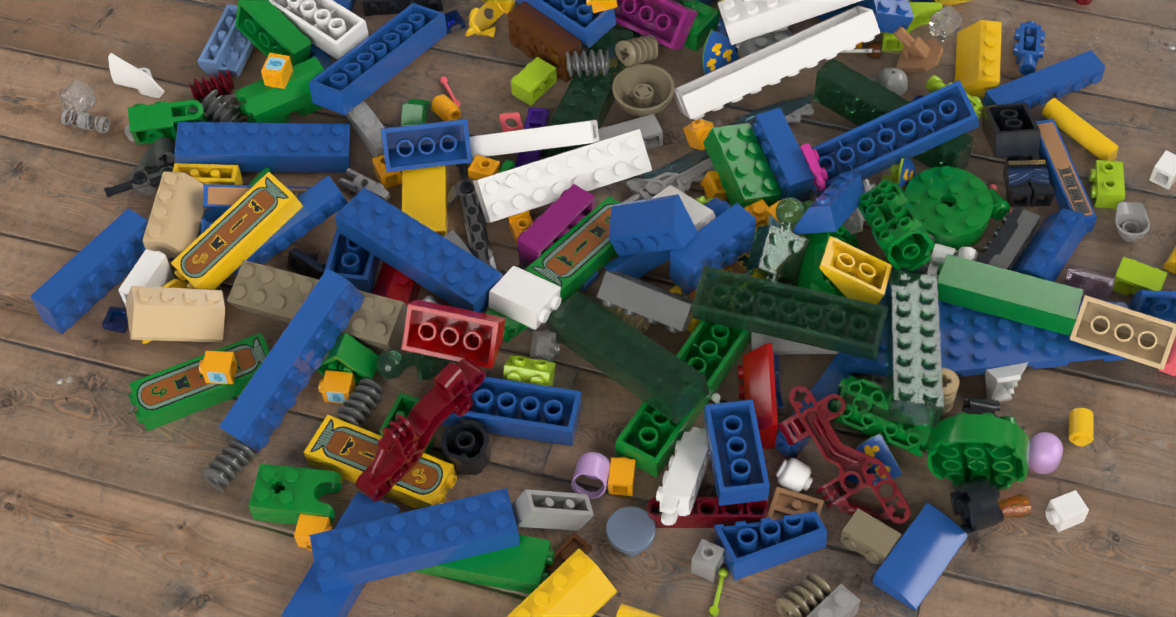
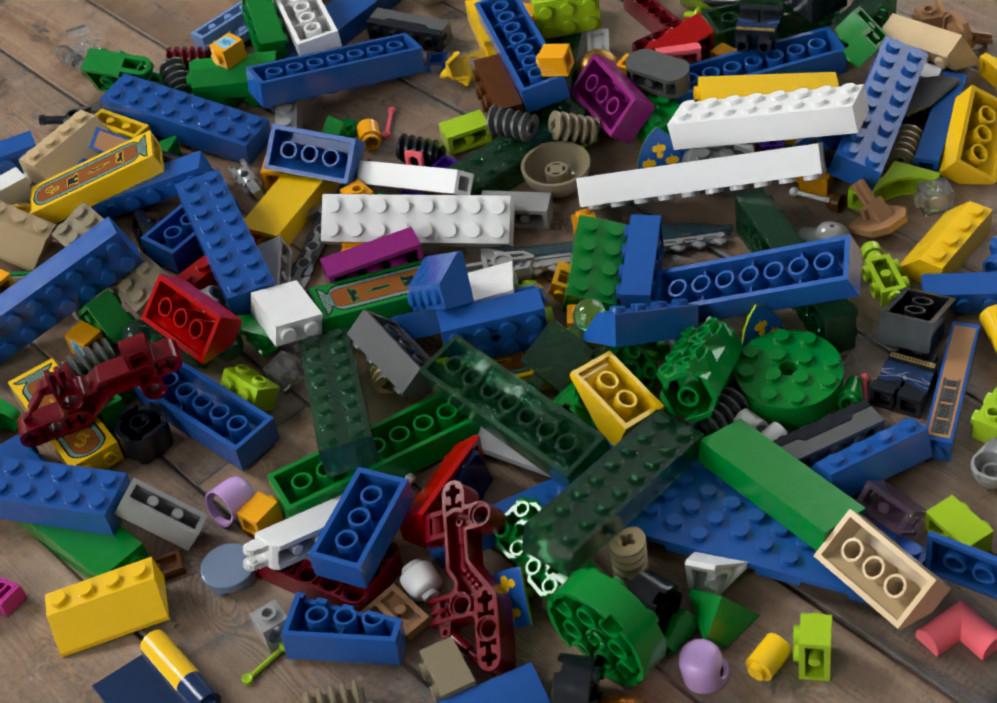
camera: 35 degrees right, 10 degrees down
(130, 76) = (138, 36): white panel -> none
(493, 111) = (431, 150): none -> black piece
(819, 174) = (659, 276): dark pink hinge -> none
(1028, 410) = (719, 617): none -> green slope
(1113, 405) = (813, 646): none -> lime brick

